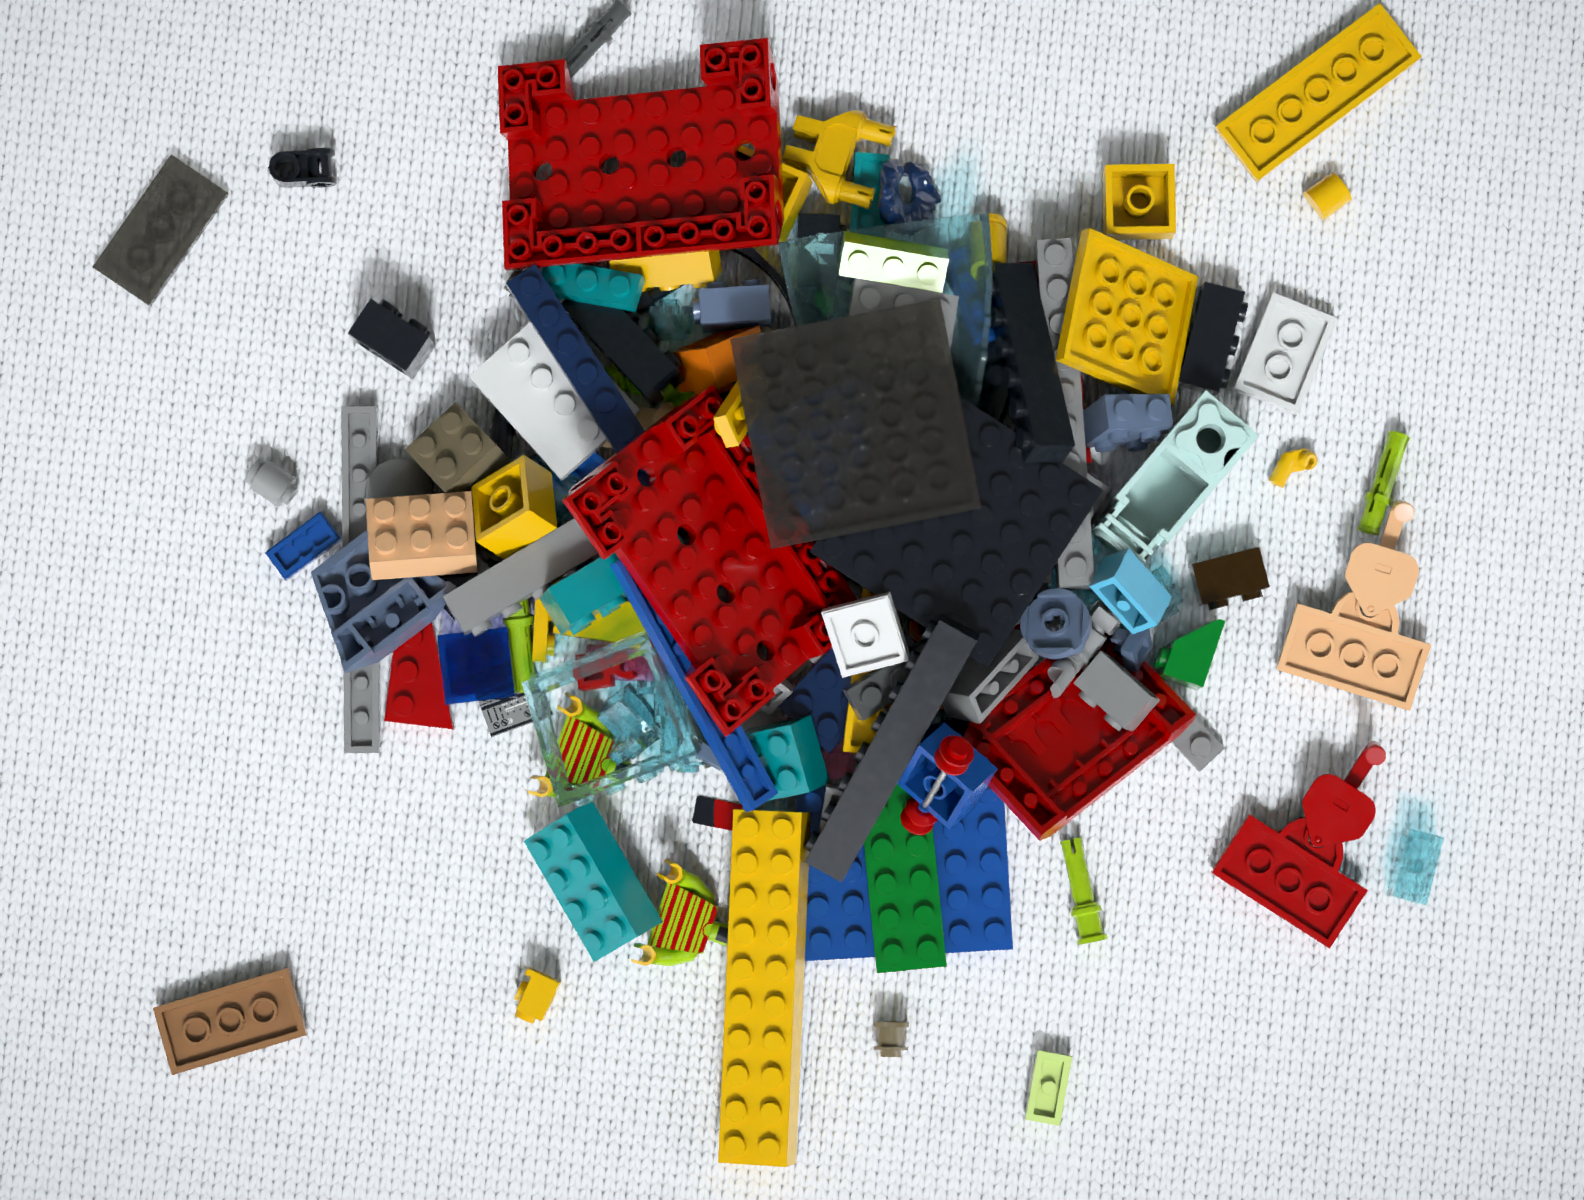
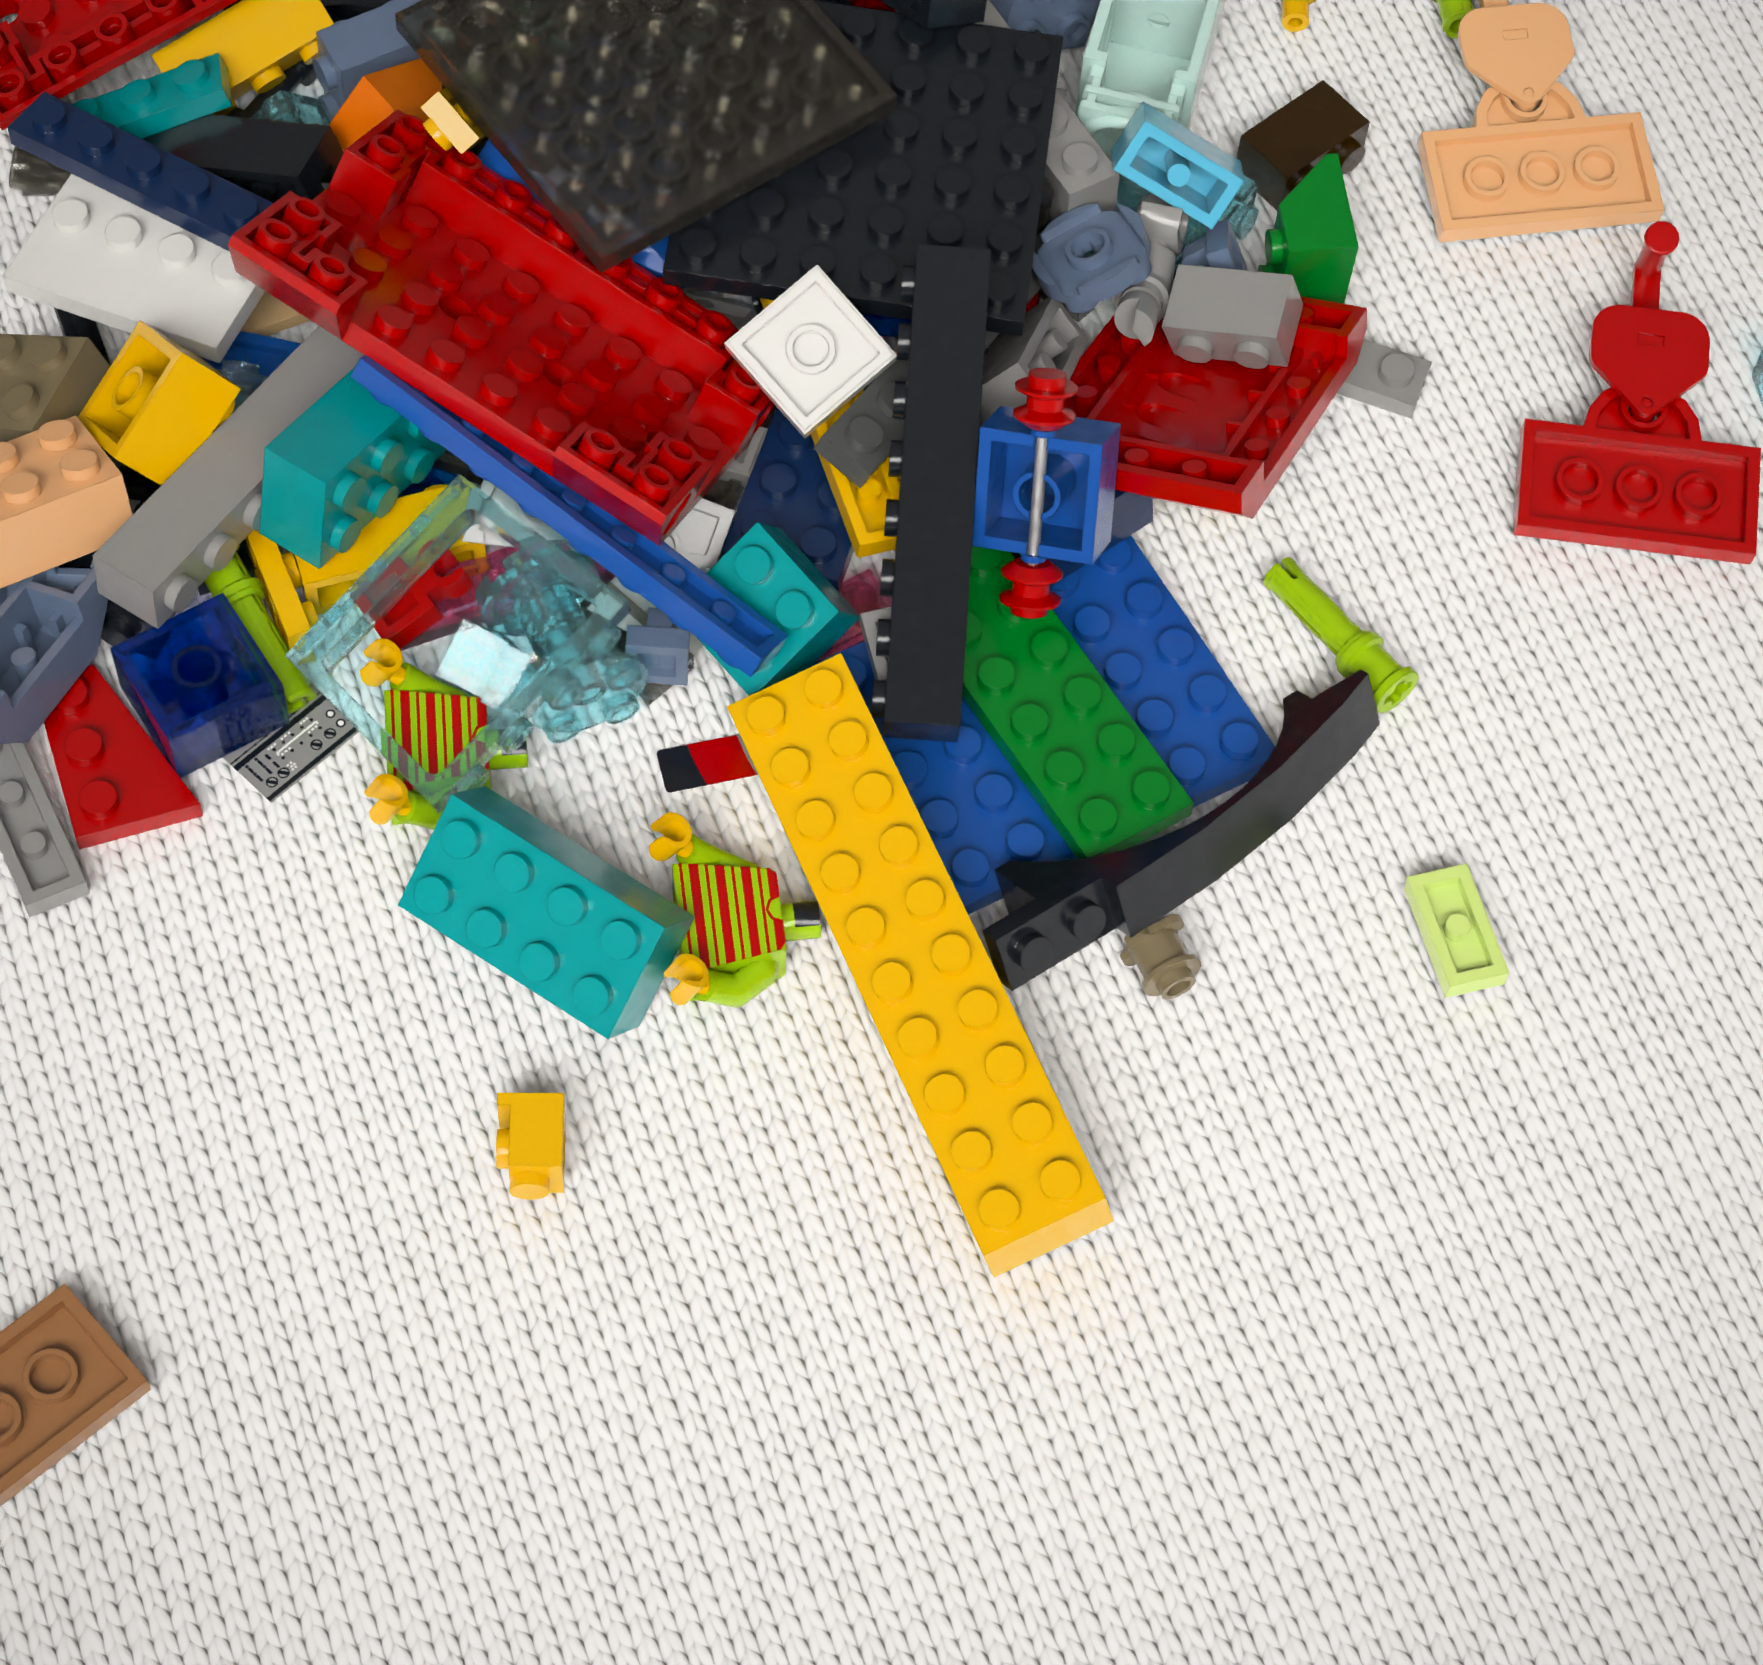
camera: 30 degrees left, 25 degrees down
(862, 996) = (1073, 902): none -> black slope

